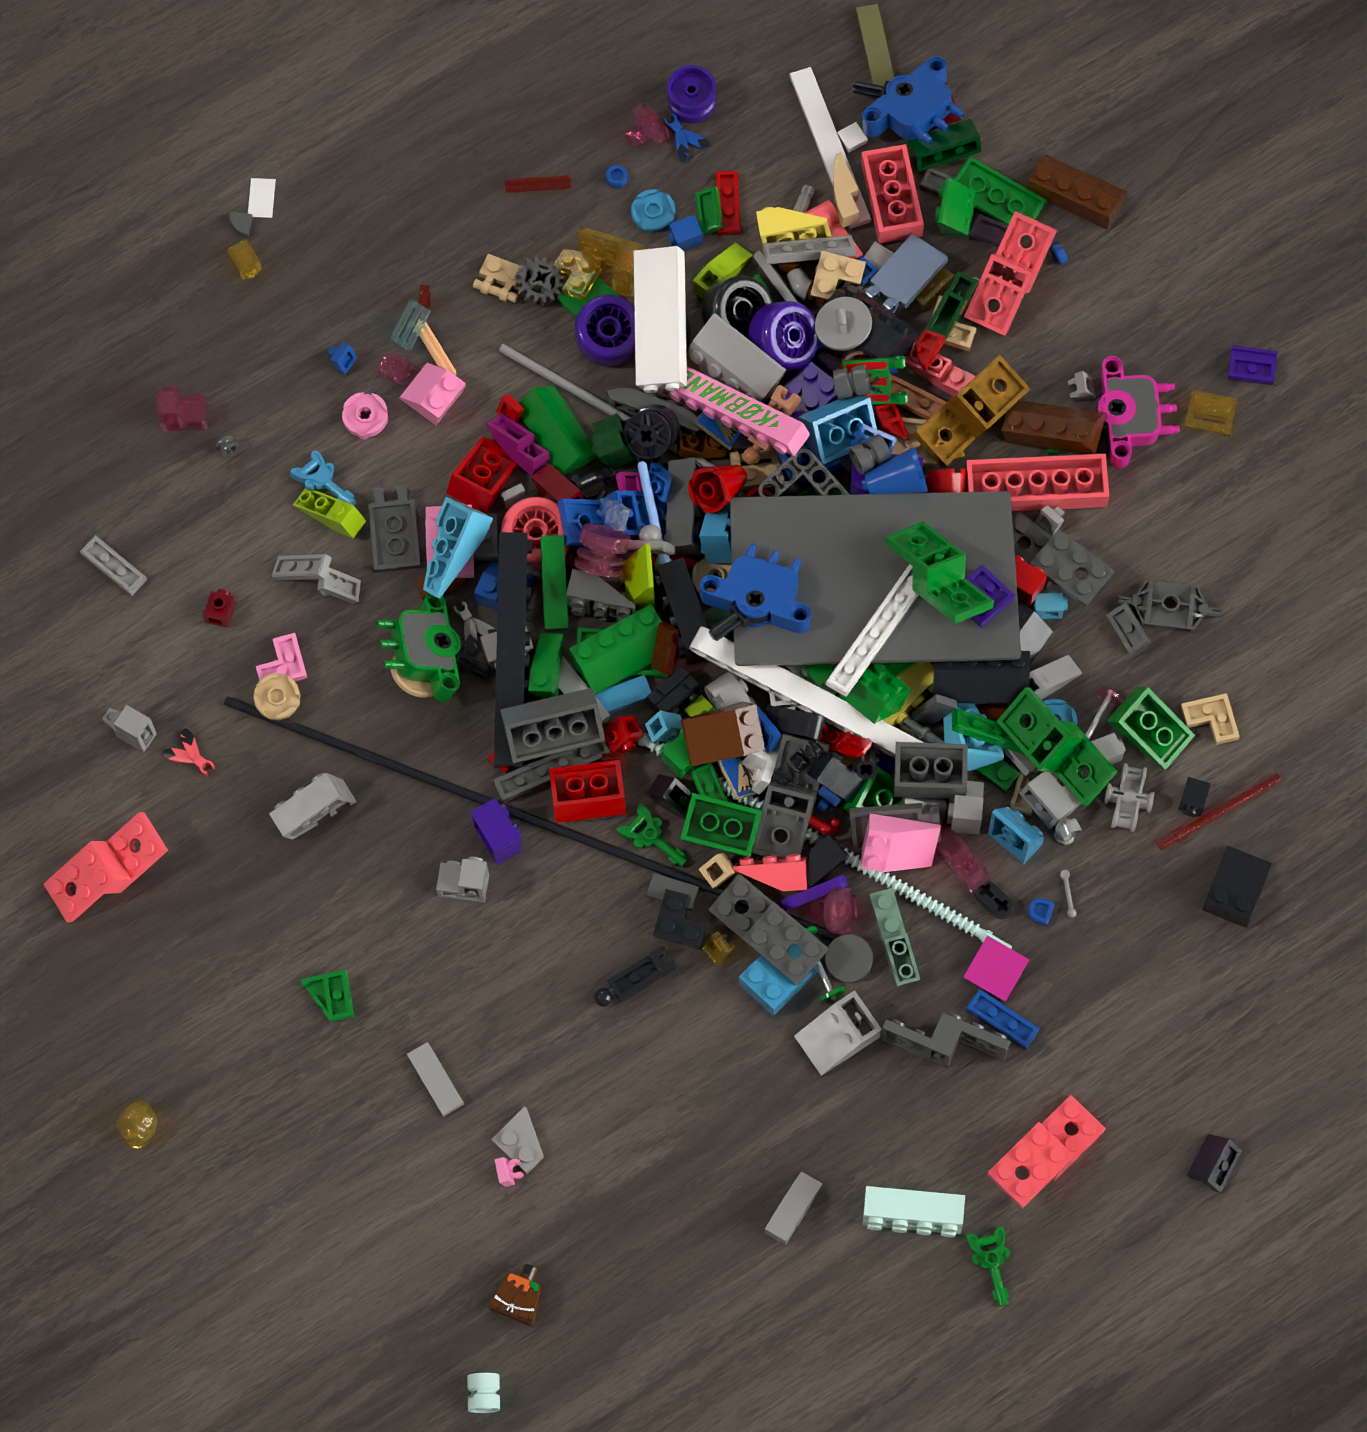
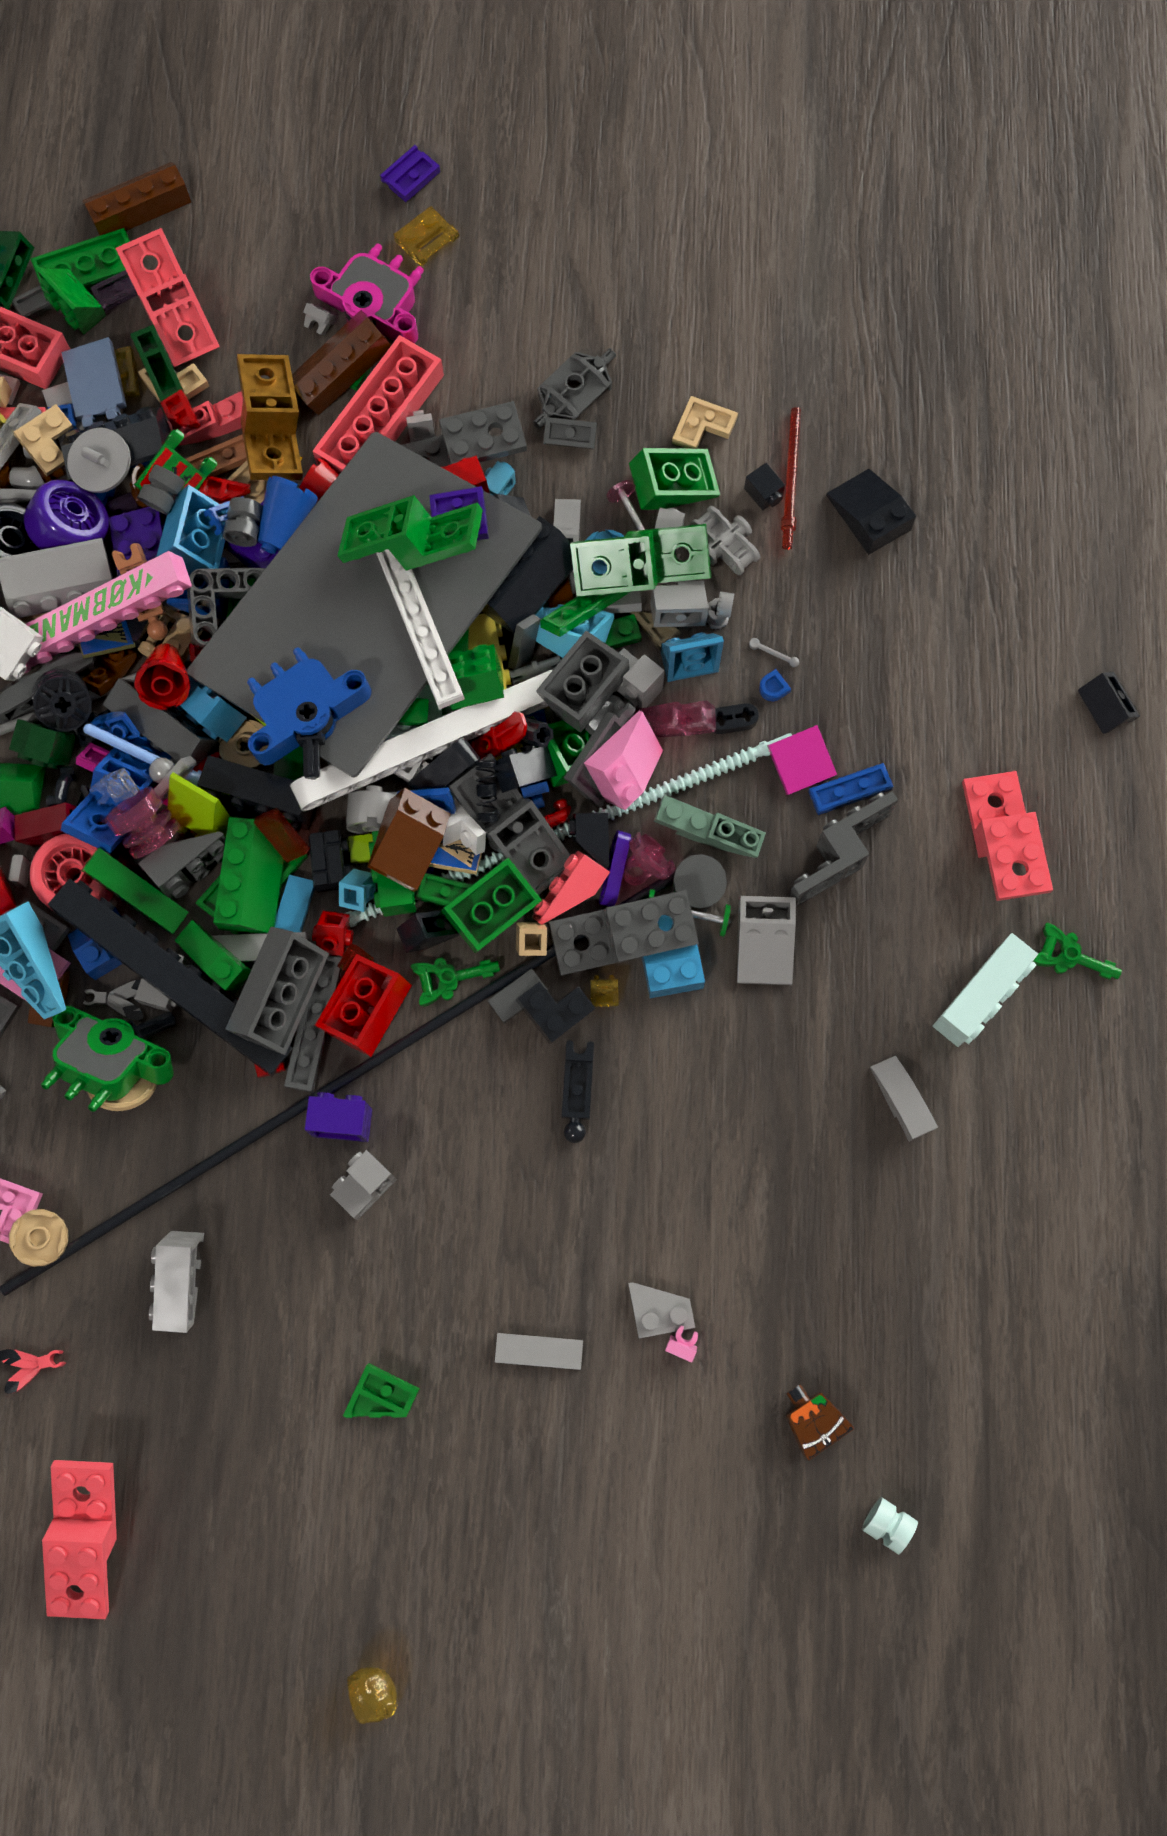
camera: 55 degrees left, 5 degrees up
(1058, 253) = (182, 250): blue tile -> none

